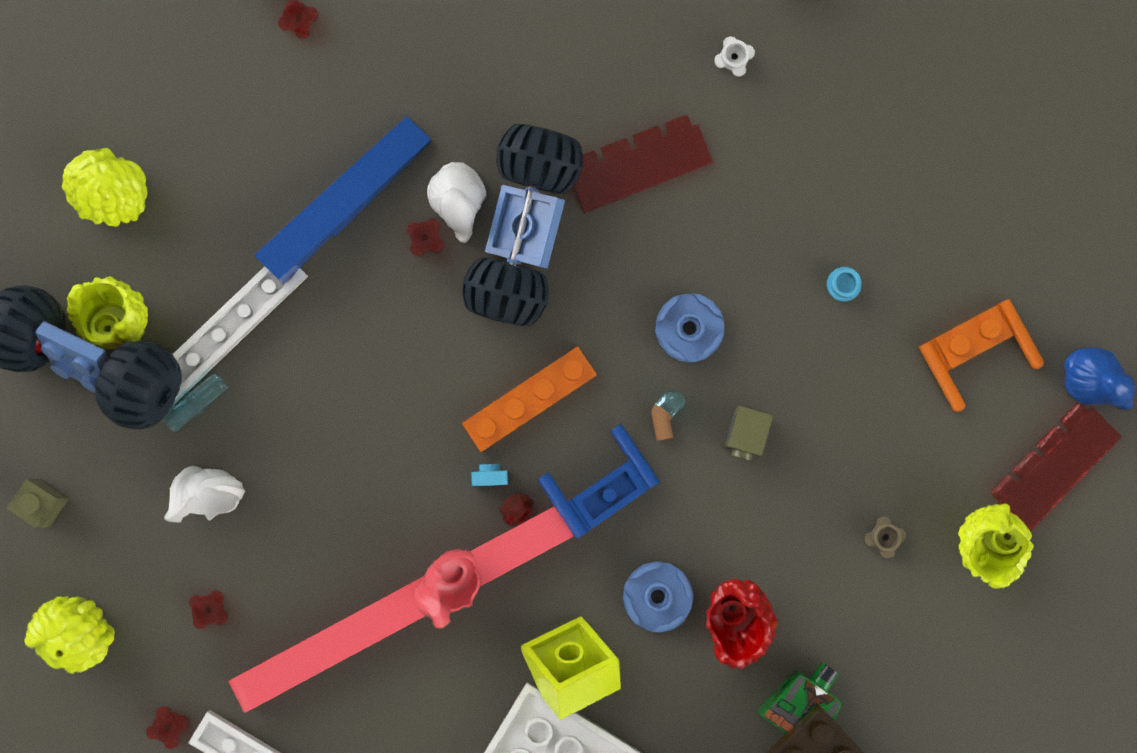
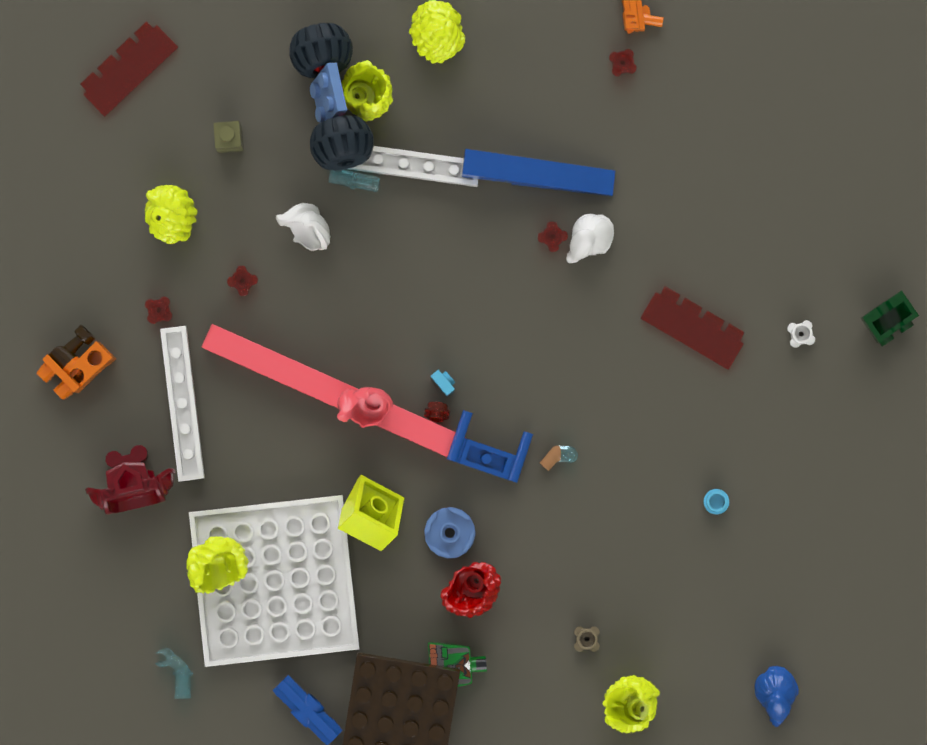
camera: 50 degrees right, 0 degrees up
(523, 225) = (603, 288): black plate -> none
(529, 399) = (505, 370): orange plate -> none
(695, 310) = (633, 431): medium blue plate -> none
(748, 433) = (584, 512): olive brick -> none
(972, 339) = (743, 602): orange plate -> none
(1066, 461) = (709, 711): clear red windscreen -> none

